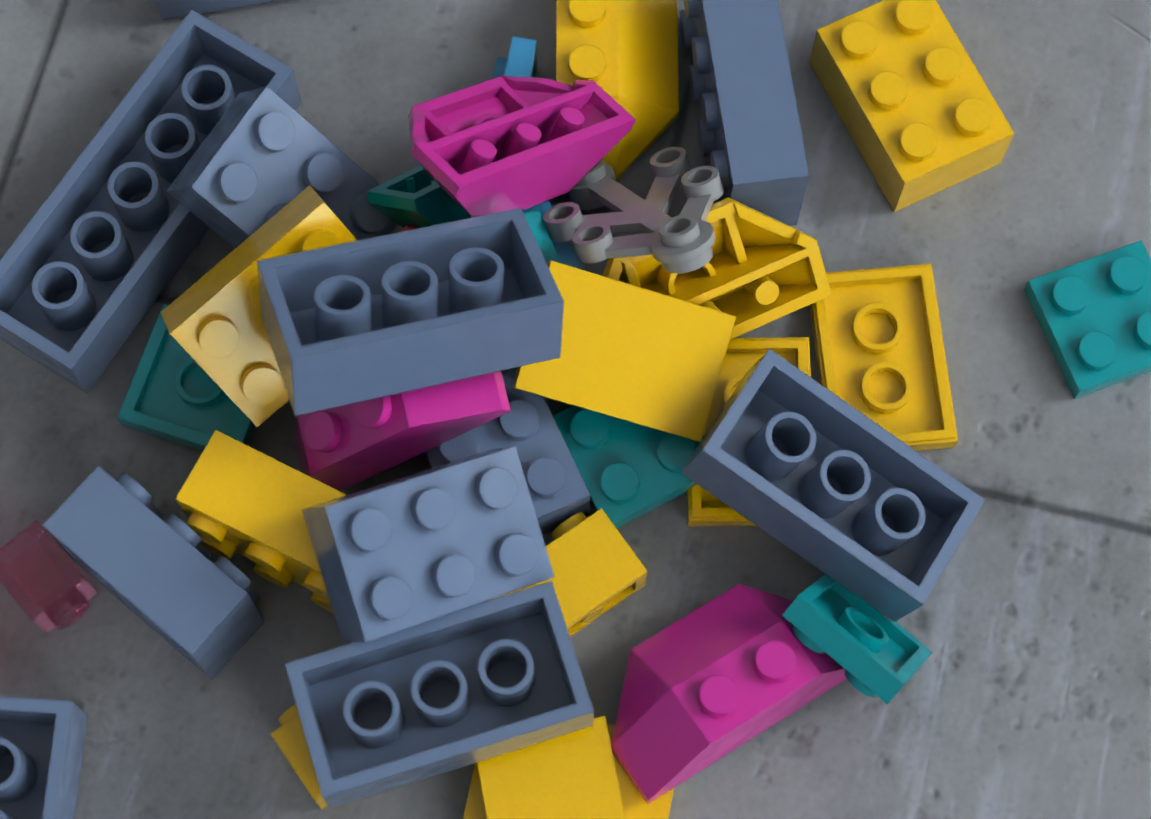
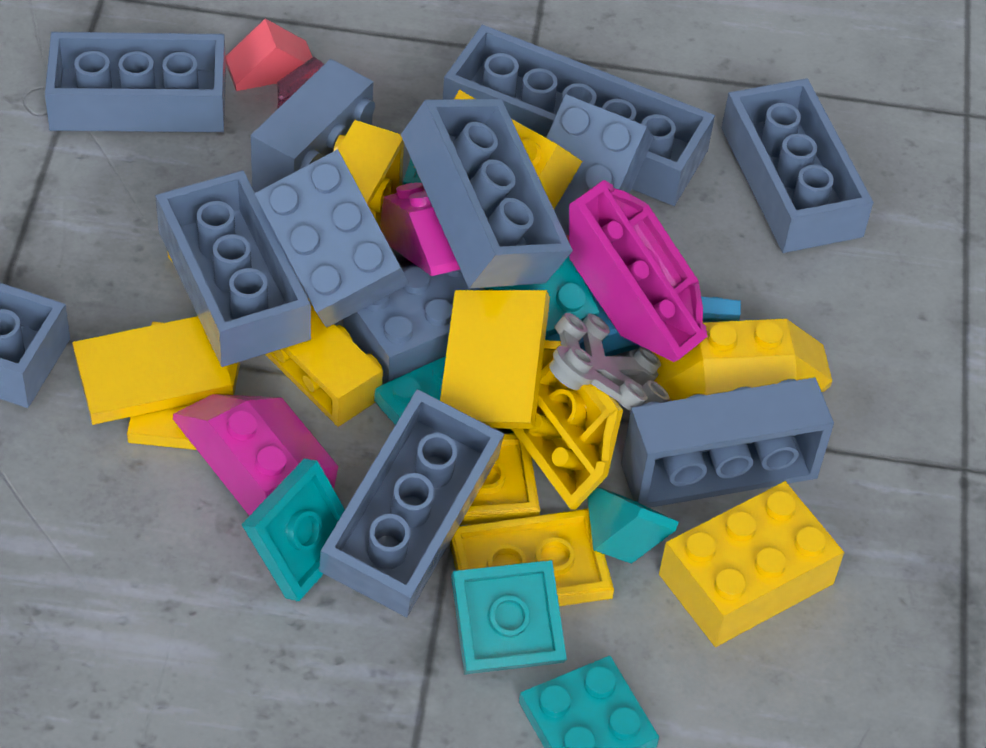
camera: 80 degrees right, 20 degrees down
(853, 226) = (625, 526): none -> teal slope
(983, 390) = (508, 617): none -> teal plate

